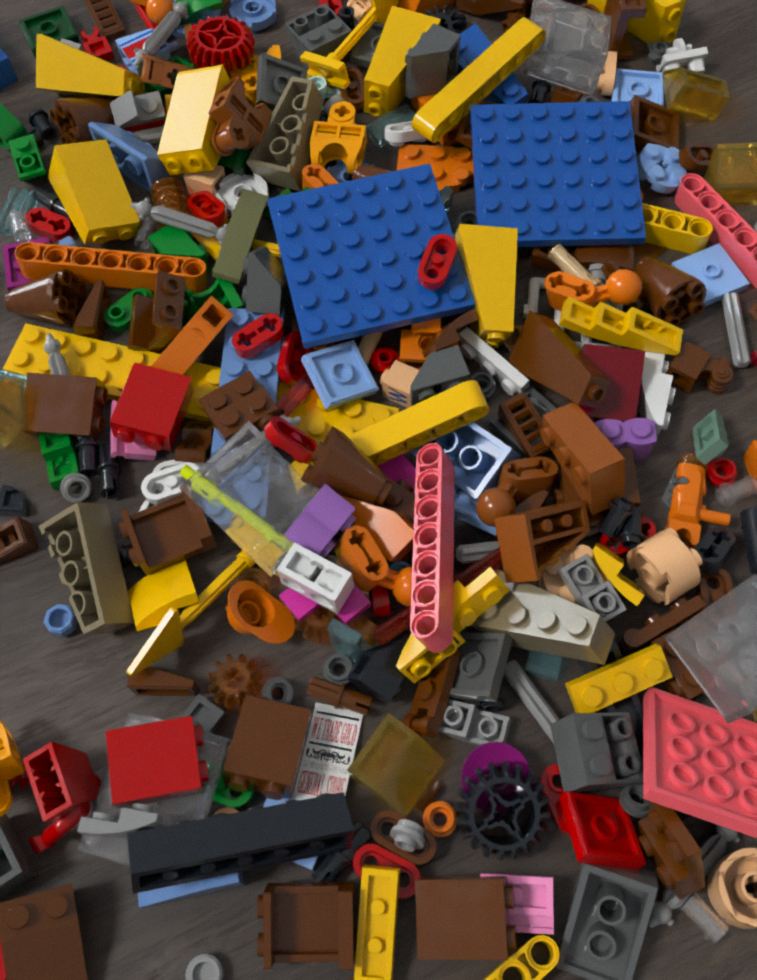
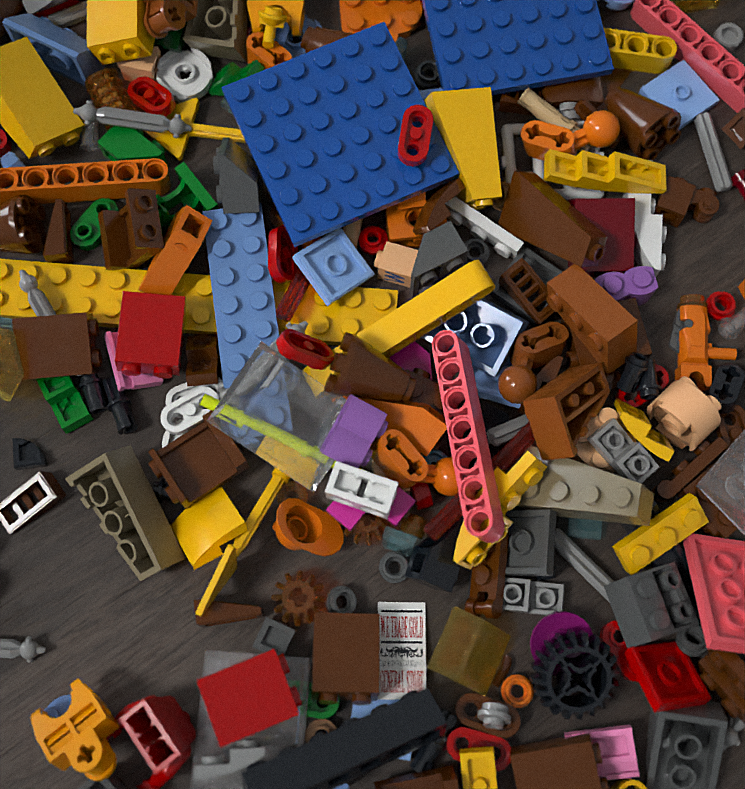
camera: 15 degrees left, 10 degrees up
(60, 620) = (110, 568): medium blue tile -> none
(81, 494) = (95, 434): light grey plate -> none
(238, 403) = (242, 322): reddish brown plate -> none
(240, 236) = (196, 126): olive slope -> none
(258, 335) = (238, 234): red beam -> none
(330, 153) = (271, 18): none -> yellow plate
(339, 696) = (400, 593): reddish brown axle -> none
(710, 437) = (707, 274): sand green plate -> none

